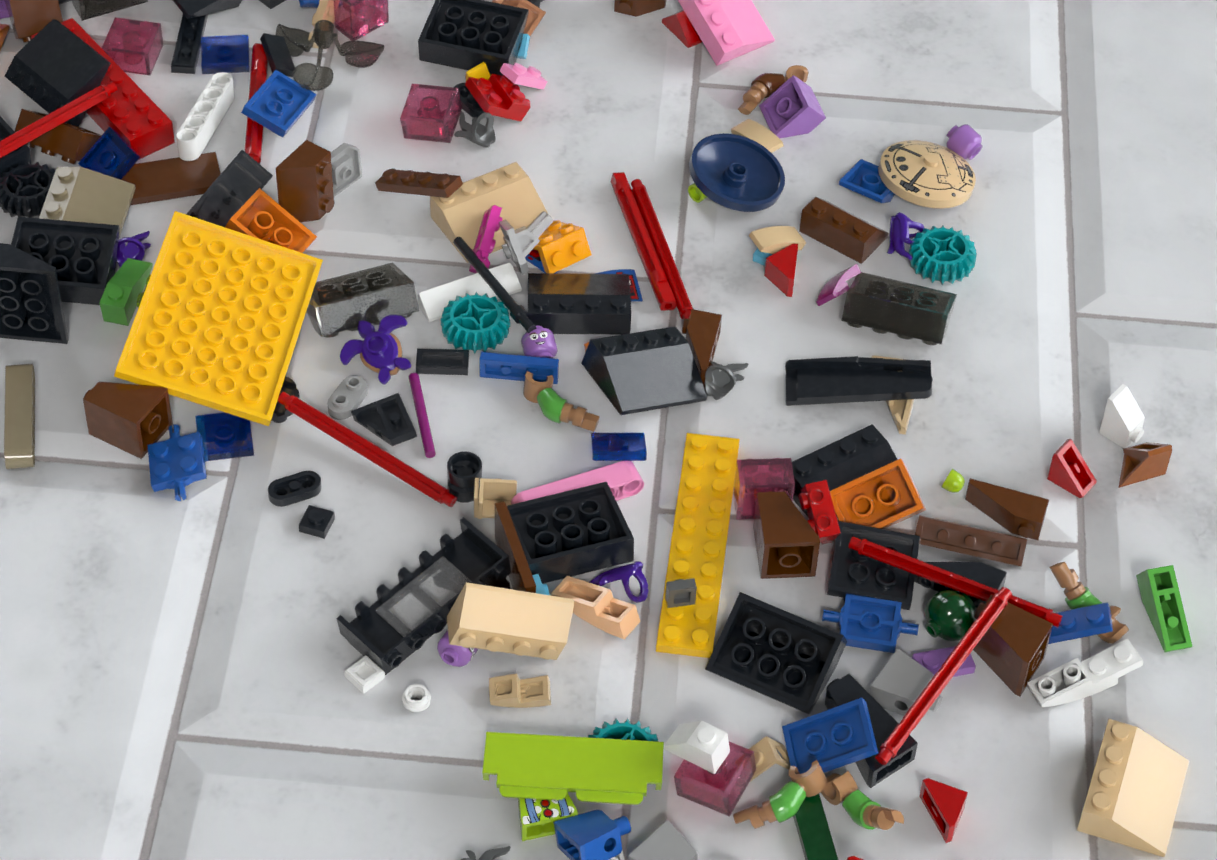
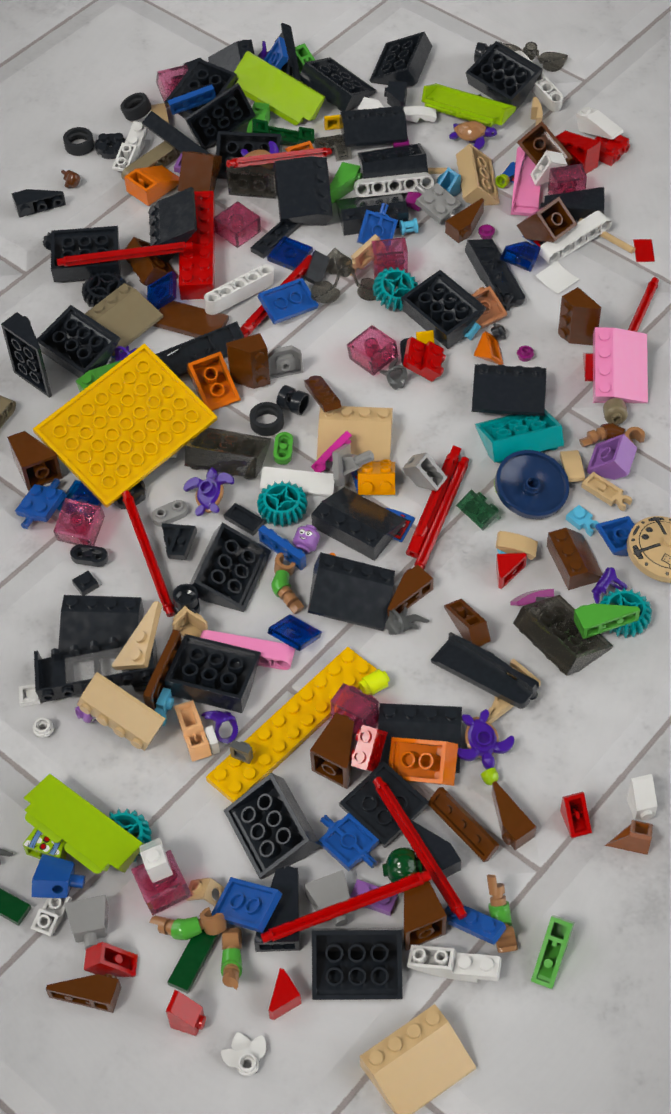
camera: 40 degrees right, 5 degrees up
(255, 456) = (79, 523): none -> clear pink brick
(370, 229) = (270, 428): none -> black tyre
(375, 550) = (97, 619): none -> black slope
(394, 37) = (386, 283): none -> teal gear
(394, 207) = (291, 399): none -> black wheel
(422, 417) = (201, 549): magenta bar -> none
(424, 268) = (283, 452): none -> bright green plate
(468, 542) = (139, 646): none -> tan wing
(478, 417) = (229, 569): none -> black slope
(517, 311) = (305, 510): black bar -> none
(517, 693) = (103, 758): tan slope -> none
(523, 76) = (452, 351): bright pink plate -> none
(552, 35) = (498, 331): none -> black plate
(555, 60) = (489, 349): none -> orange slope
(600, 46) = (525, 353): none -> magenta plate
(611, 212) = (424, 472): none -> light grey torso
(623, 88) = (509, 390): none -> black slope
(628, 596) = (213, 742): none -> white tile
(673, 129) = (519, 433): none -> teal slope
(699, 226) = (476, 508): none -> clear green bracket
(751, 447) = (374, 682): none -> neon yellow brick
(753, 61) = (615, 411): none -> dark tan head
(794, 341) = (468, 622): none -> reddish brown slope
(814, 186) = (581, 519): none -> medium azure plate
(815, 146) = (606, 491): none -> tan plate
(918, 448) = (482, 740): none -> dark purple animal
(935, 264) = (600, 618): none -> bright green slope
(989, 732) = (356, 963): none -> black slope

